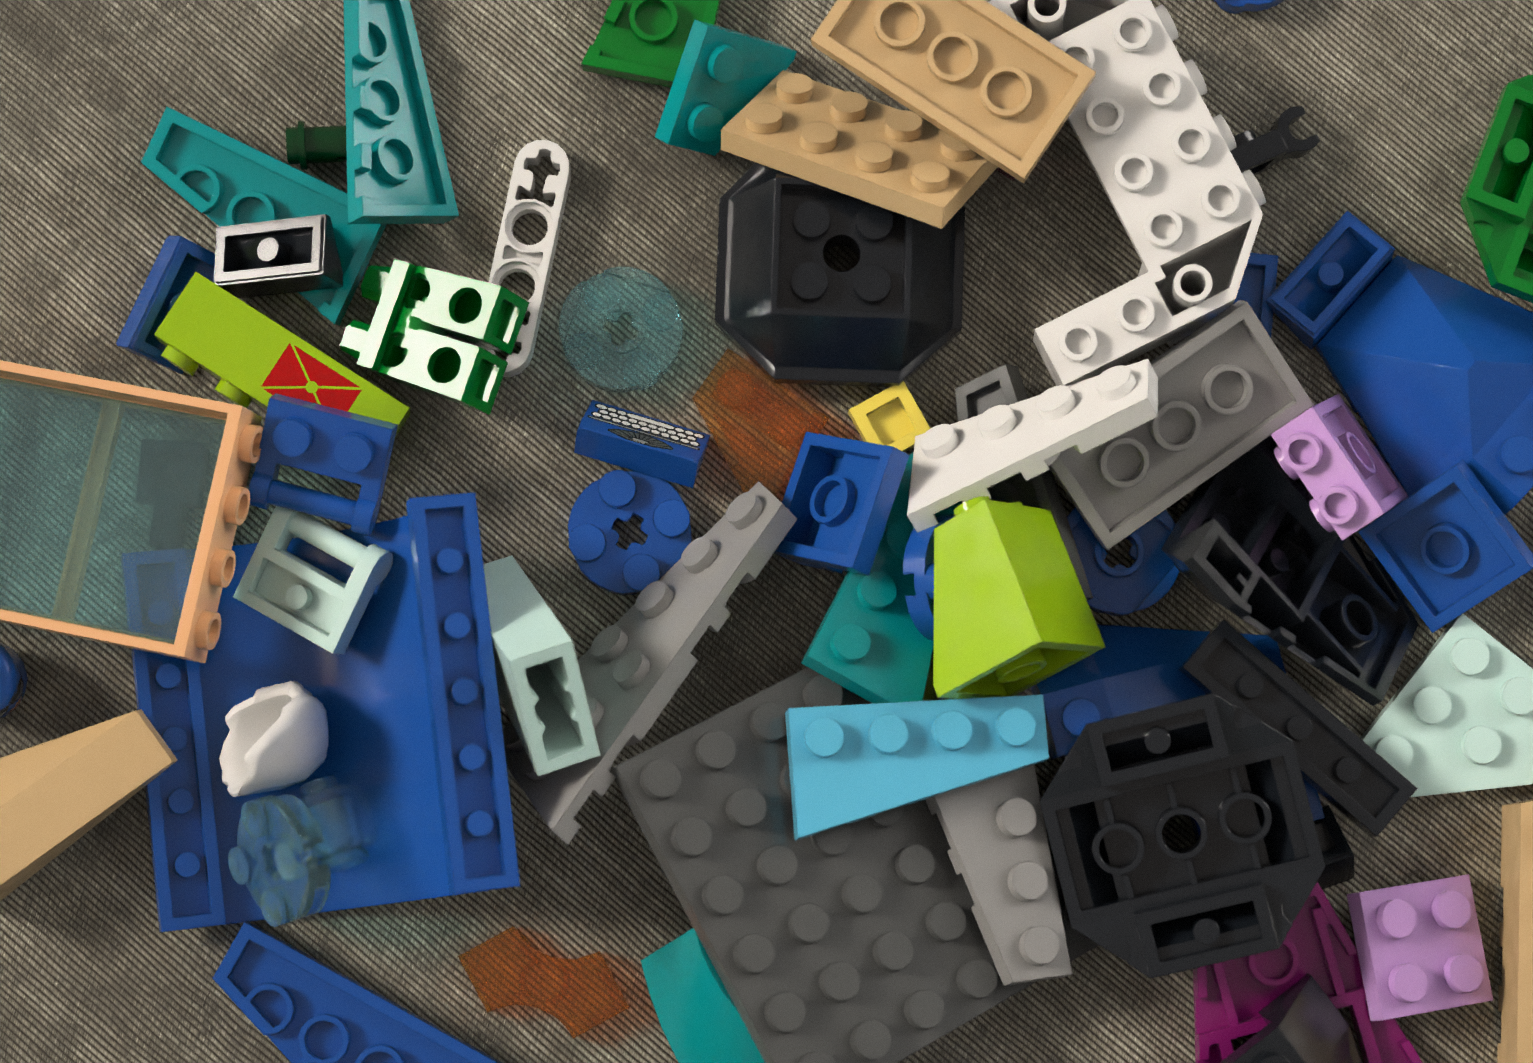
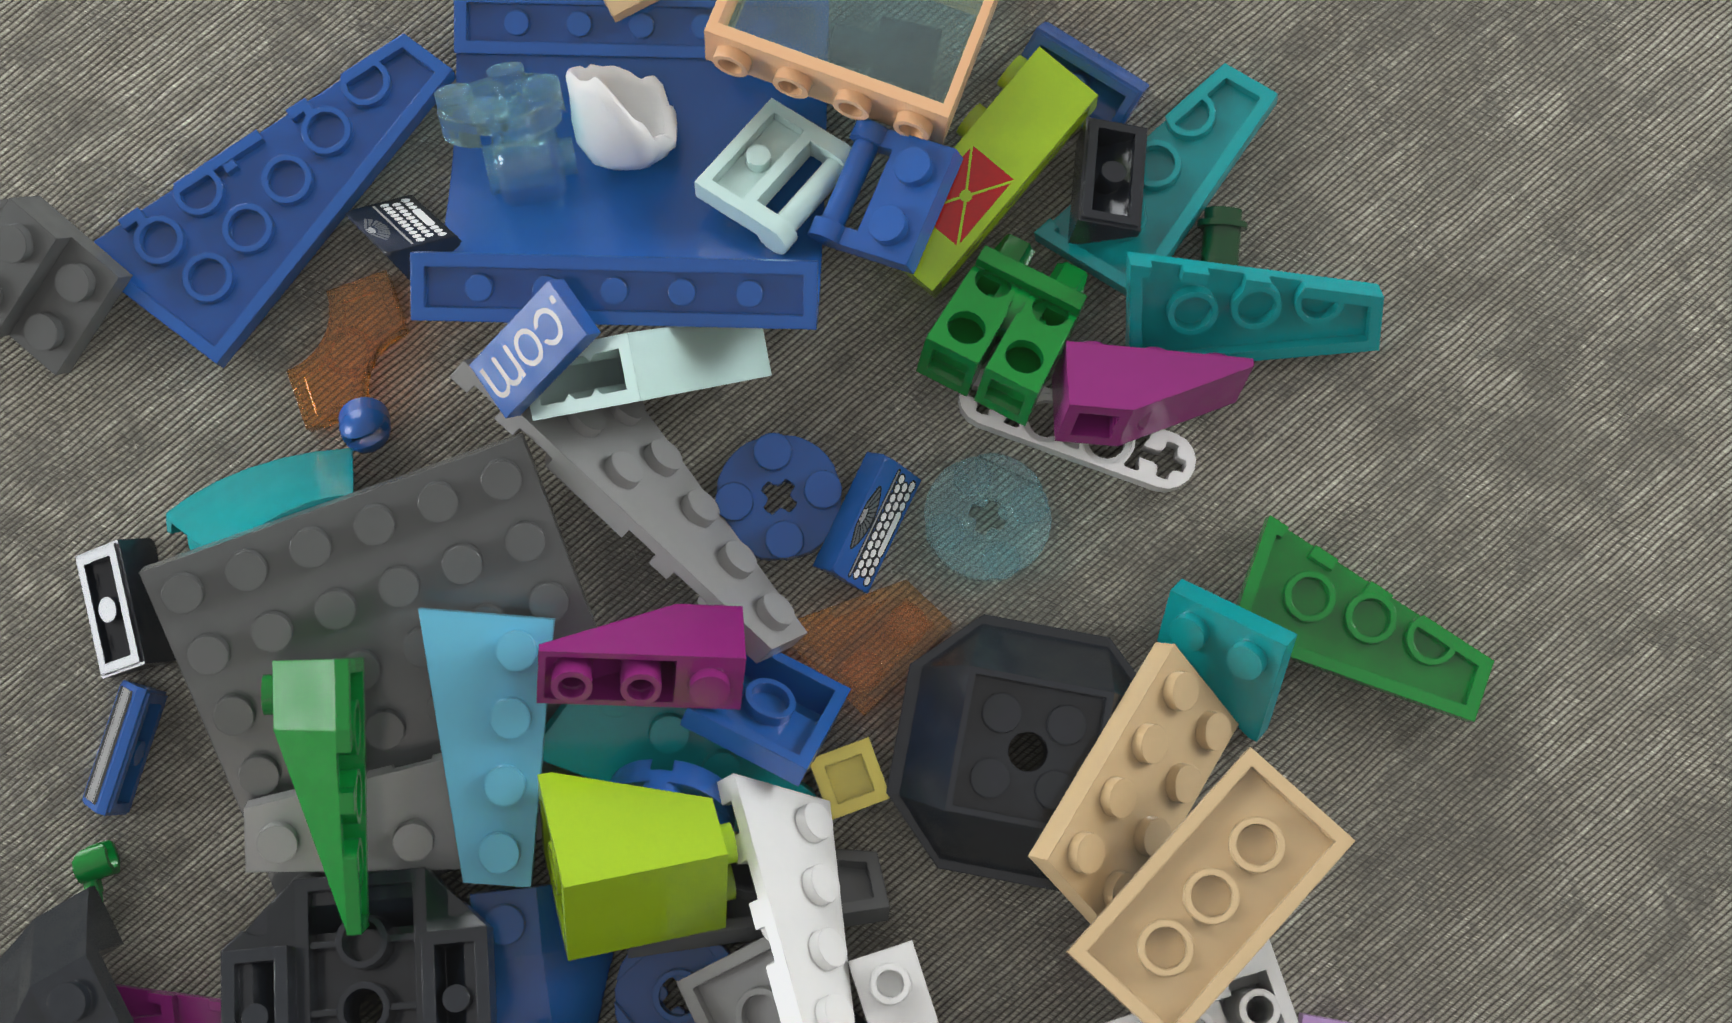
camera: 100 degrees right, 0 degrees up
(422, 935) = (401, 228): none -> slope
(484, 214) = (1130, 392): none -> magenta slope
(532, 756) = (534, 348): none -> tile
(617, 949) = (364, 424): none -> blue hinge
(811, 601) = (650, 660): none -> magenta slope
(929, 906) = (323, 743): none -> green wedge

